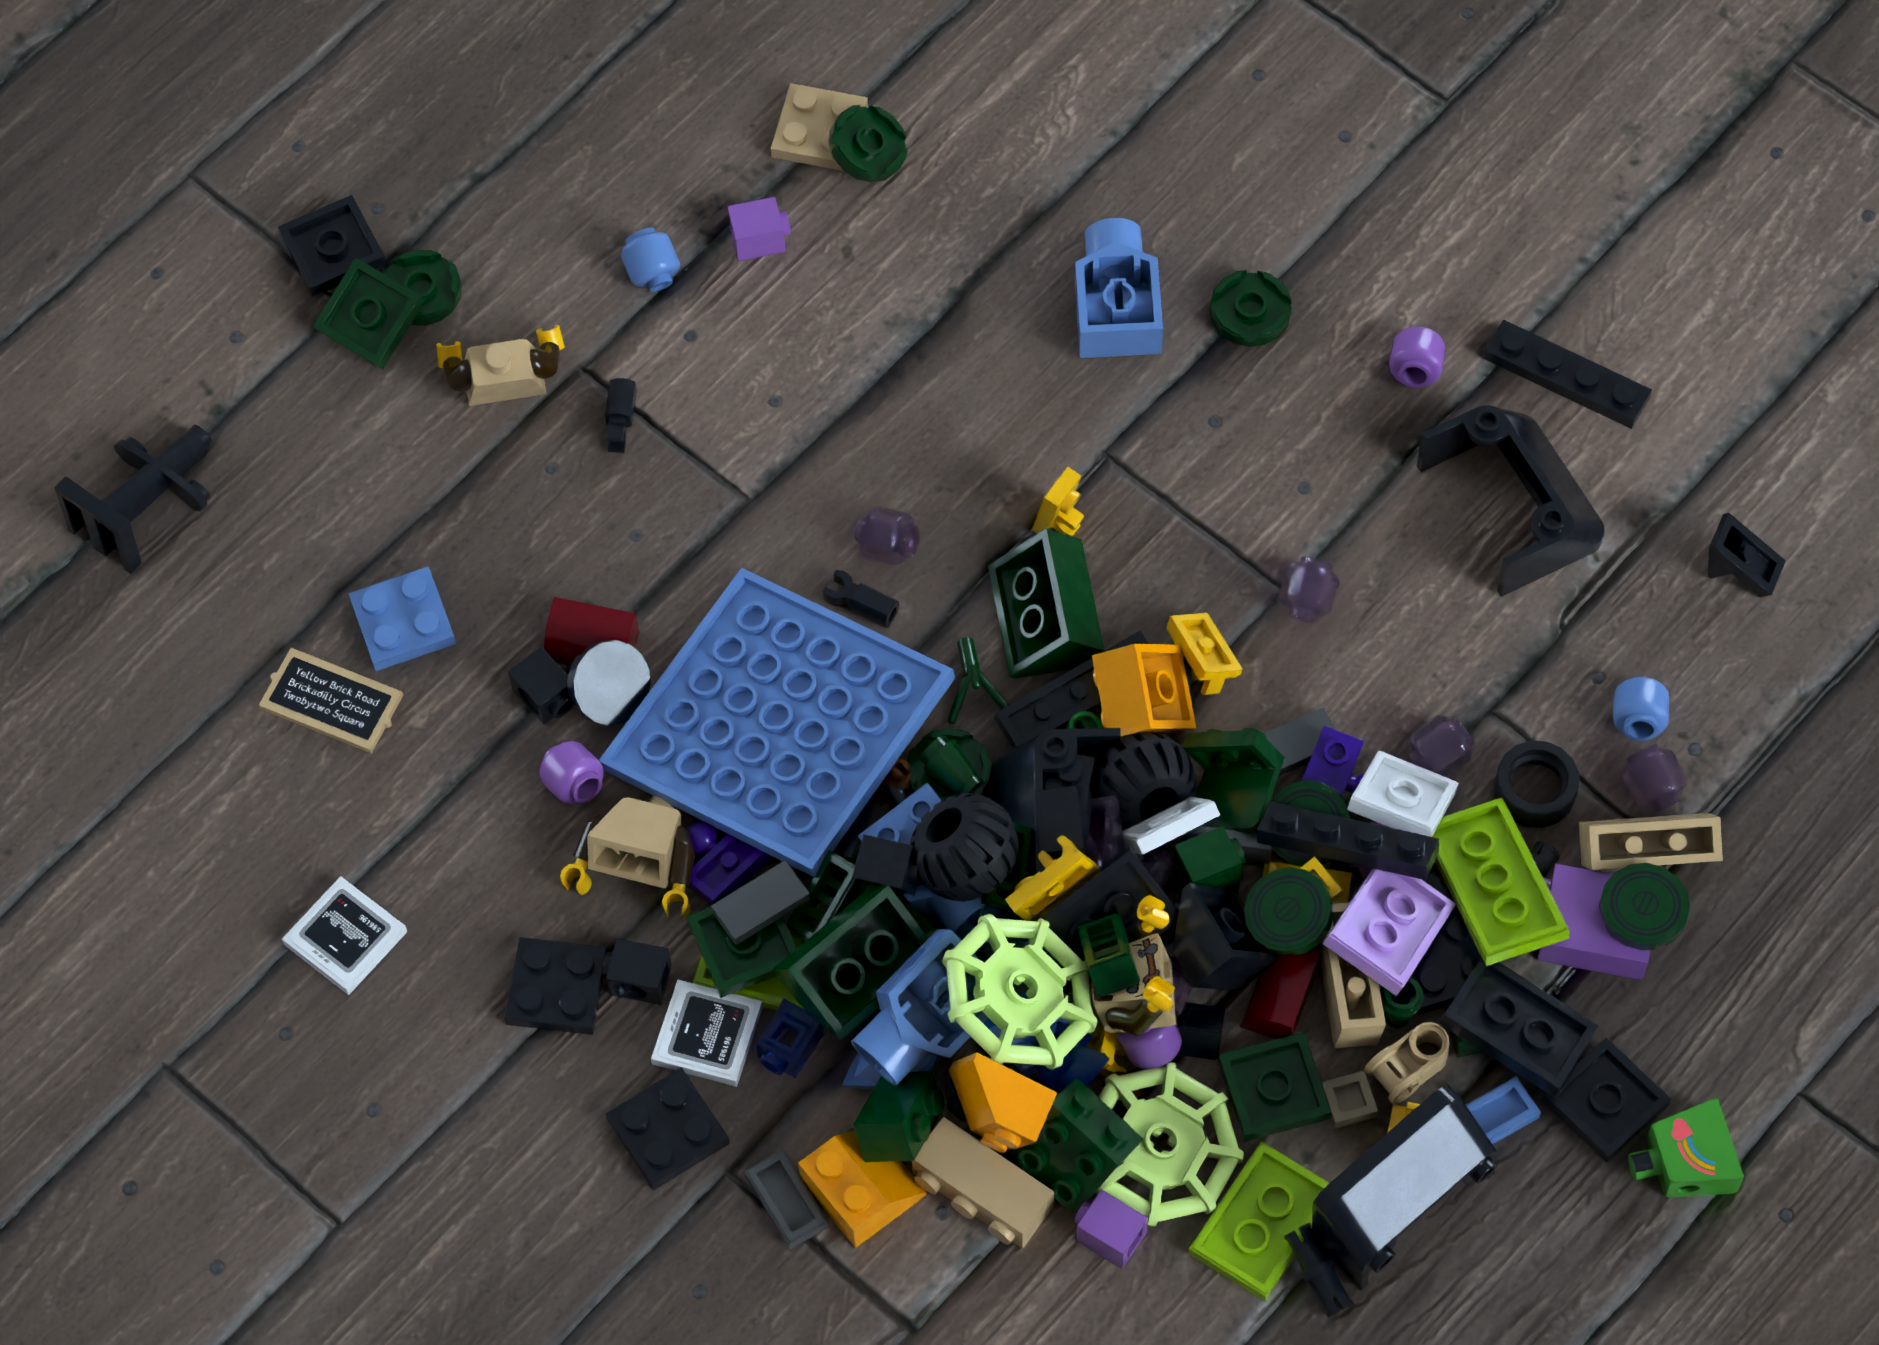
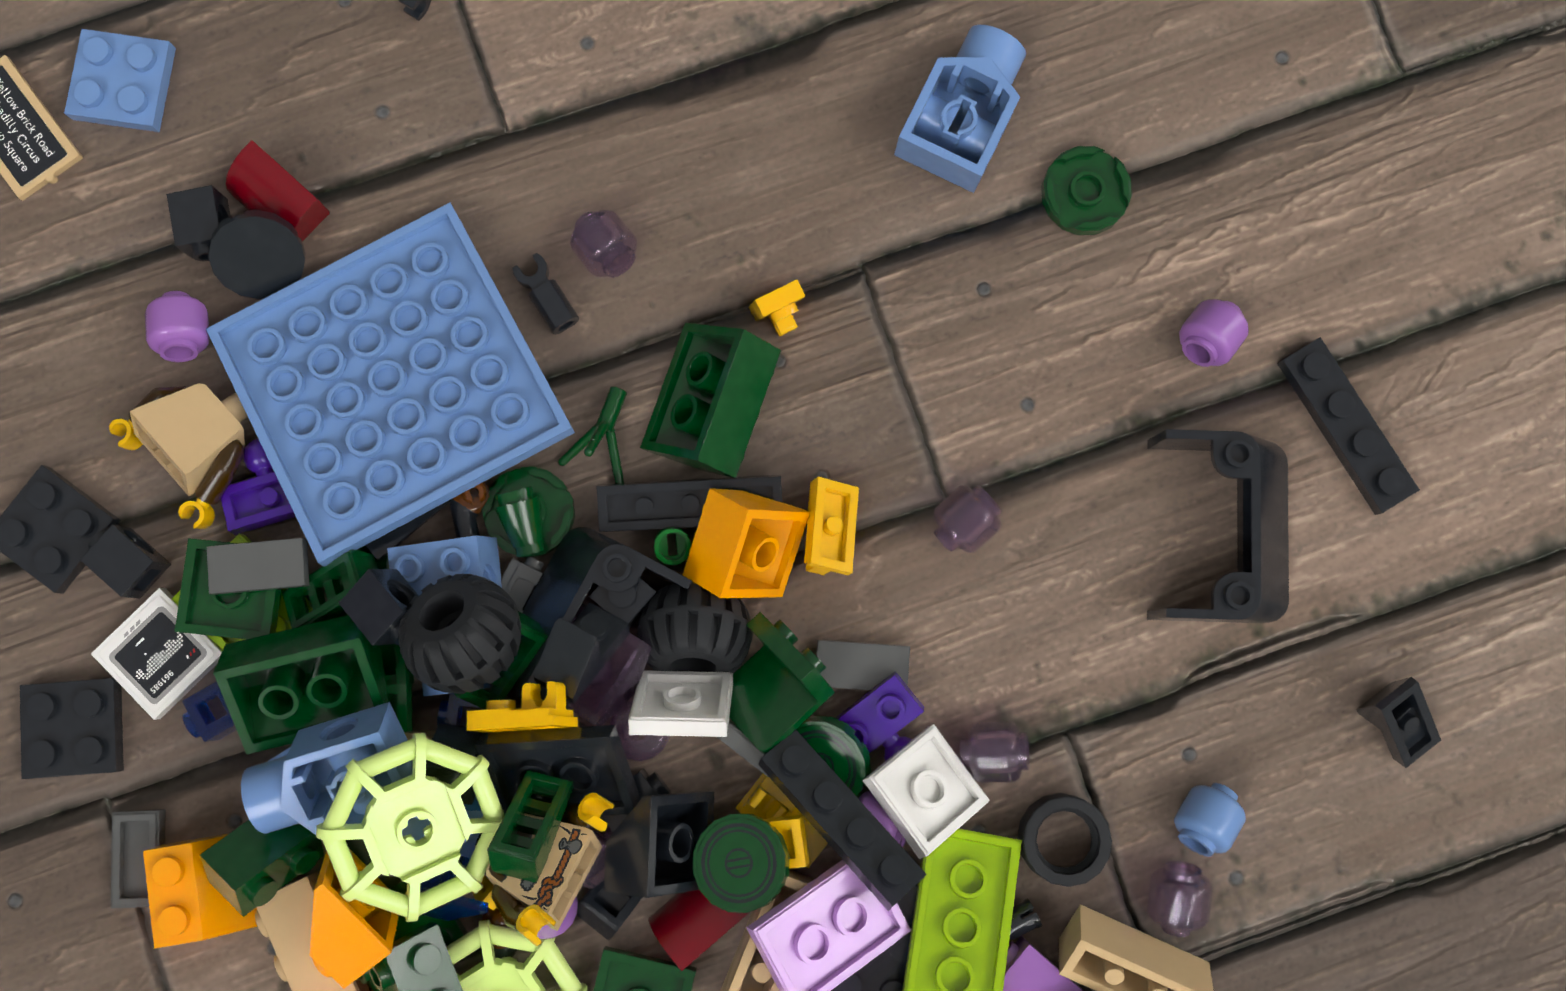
camera: 20 degrees right, 20 degrees up
(1209, 861) = (696, 766): dark green brick -> none

